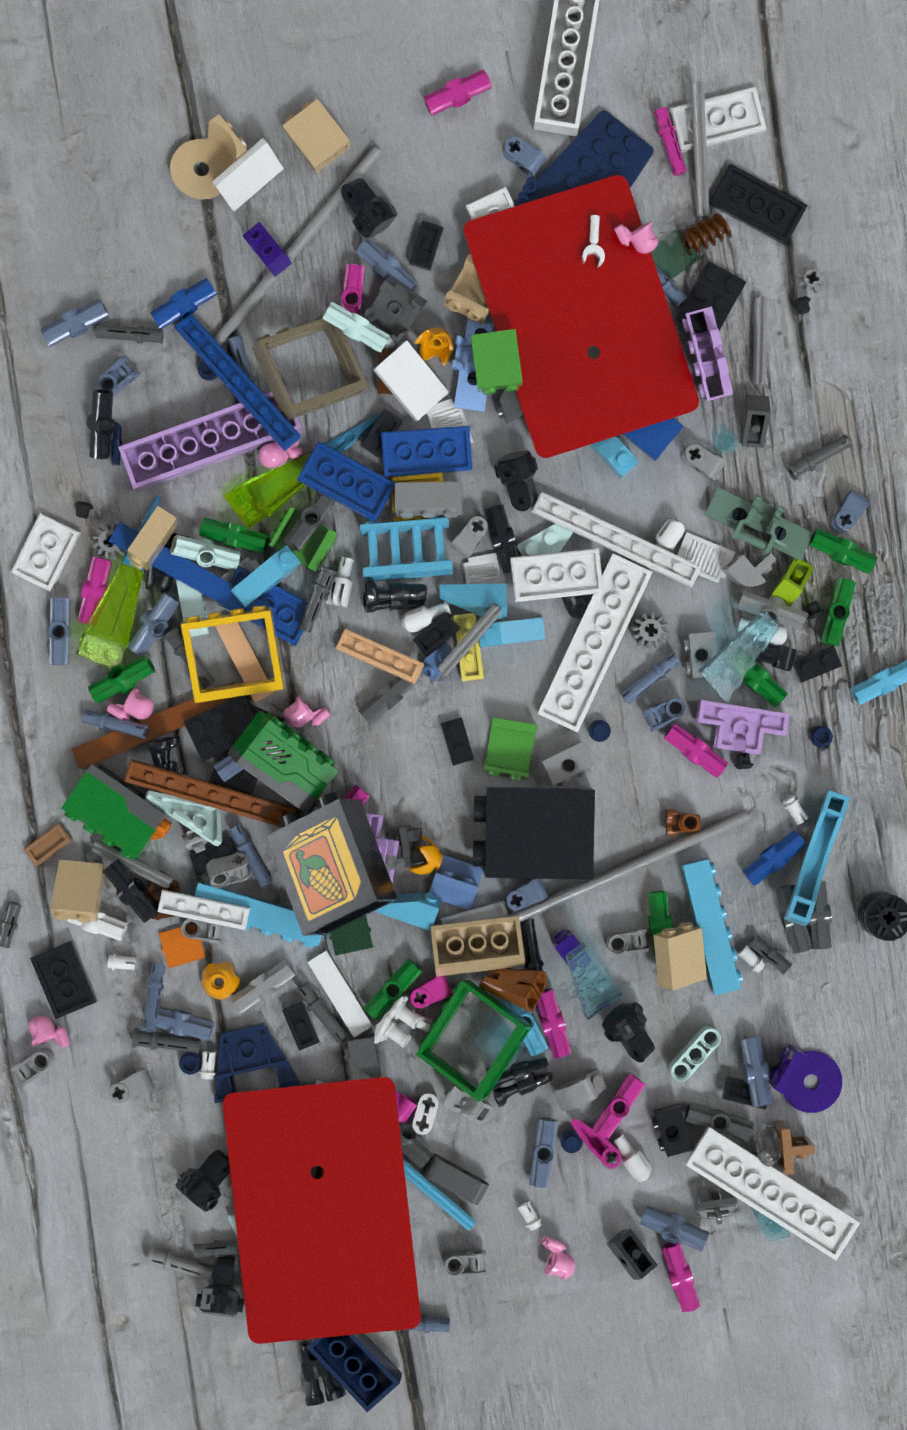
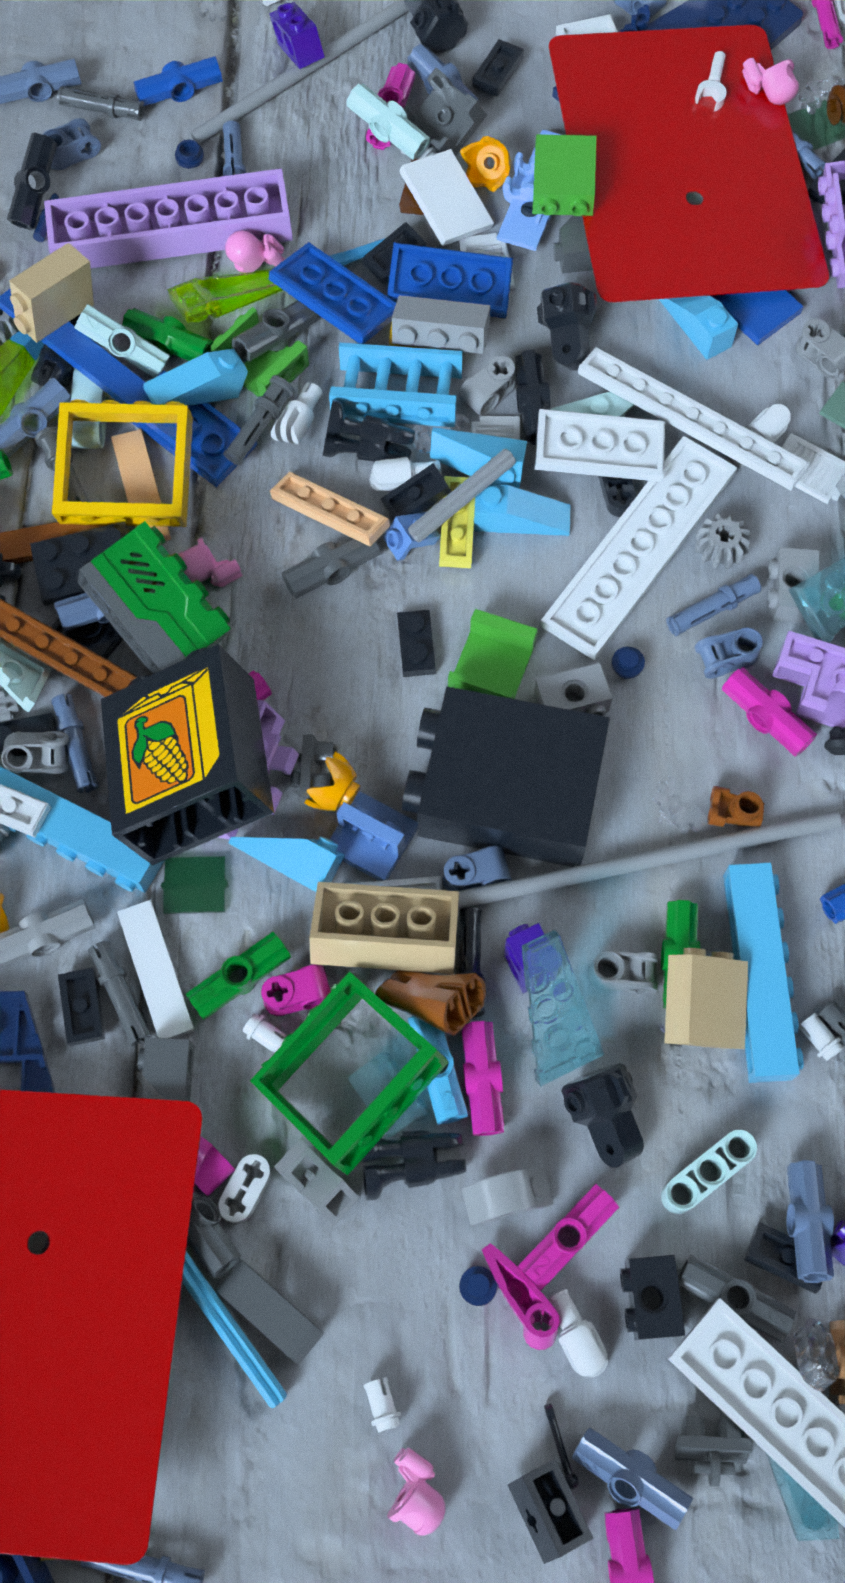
camera: 10 degrees right, 20 degrees down
(237, 382) = (222, 158): blue tile -> none
(341, 347) = (316, 189): dark tan window -> none
(388, 1028) = (216, 1028): white connector -> none
(467, 294) = (540, 113): tan panel -> none
(467, 1263) = (256, 1470): light grey piece -> none
(542, 1165) = (419, 1318): sand blue piece -> none
(640, 1233) = (571, 1478): none -> black hinge

